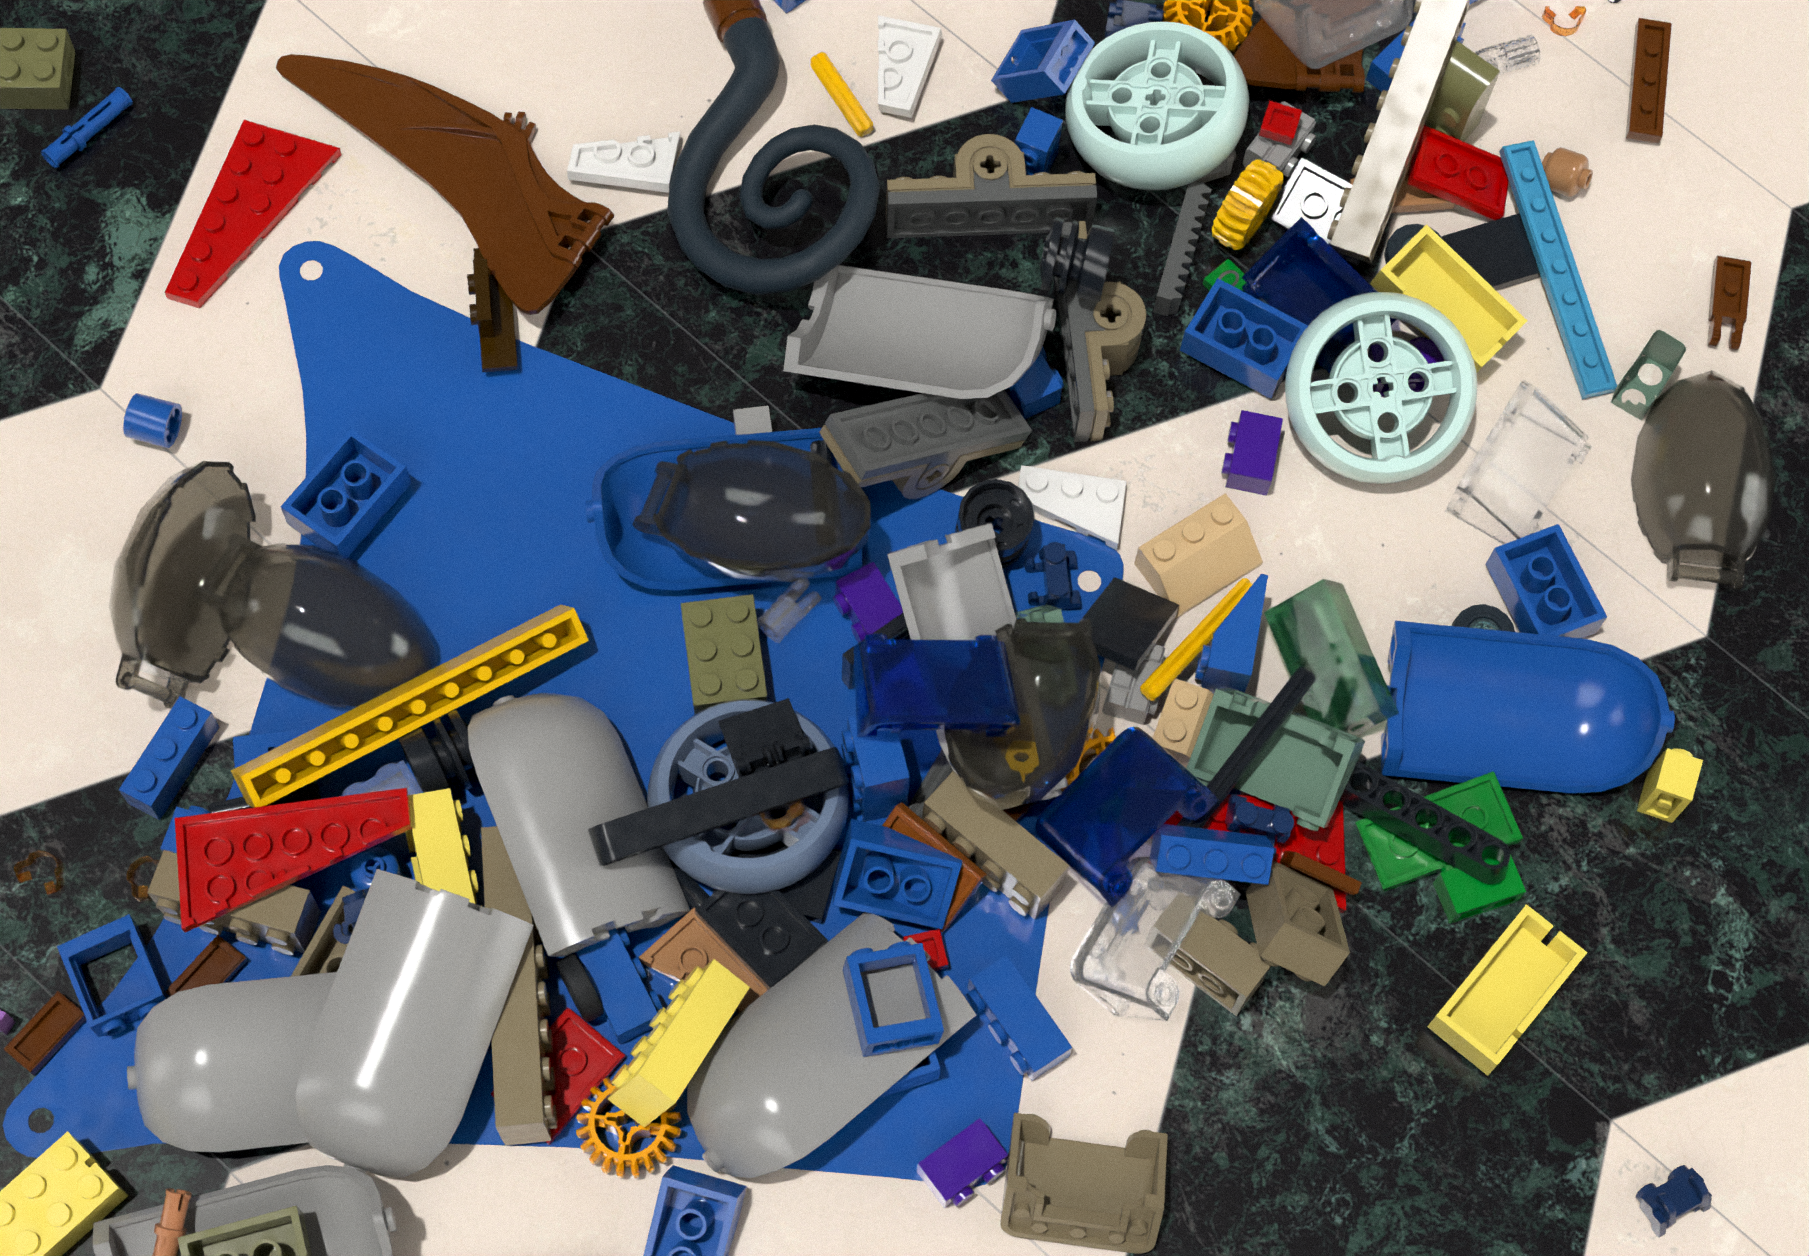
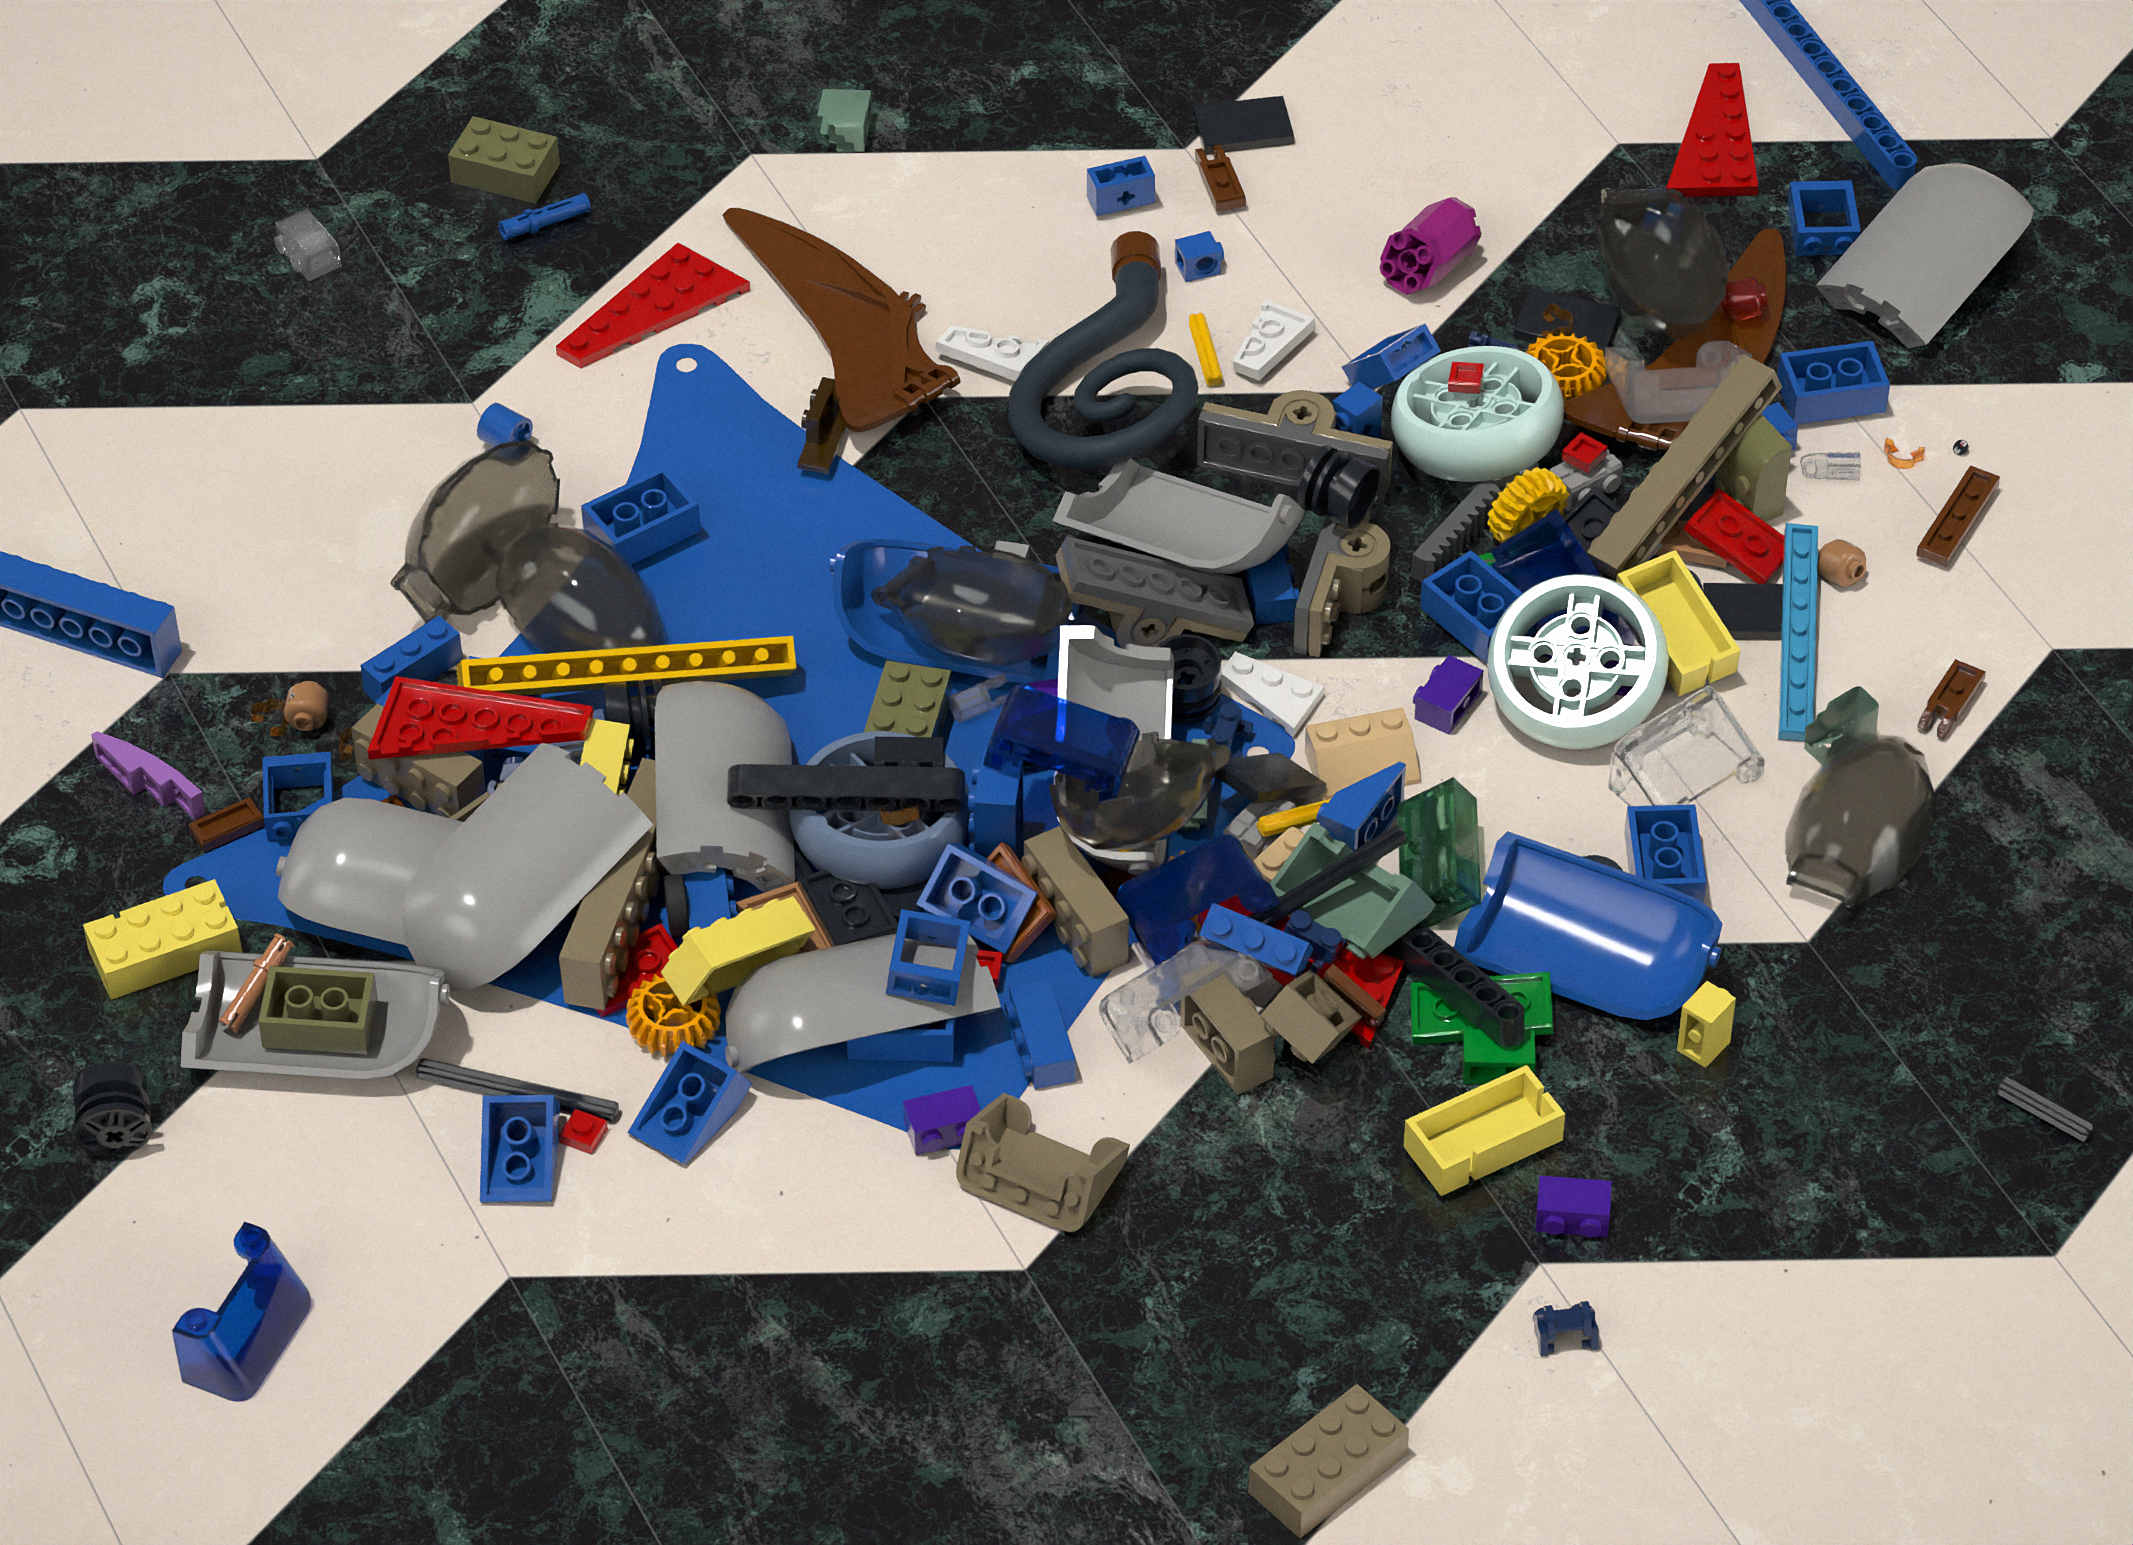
camera: 25 degrees right, 20 degrees down
(76, 853) = (306, 706): none -> medium nougat head
(1139, 73) = (1466, 377): none -> red tile
(1624, 1048) = (1573, 1206): none -> dark purple brick

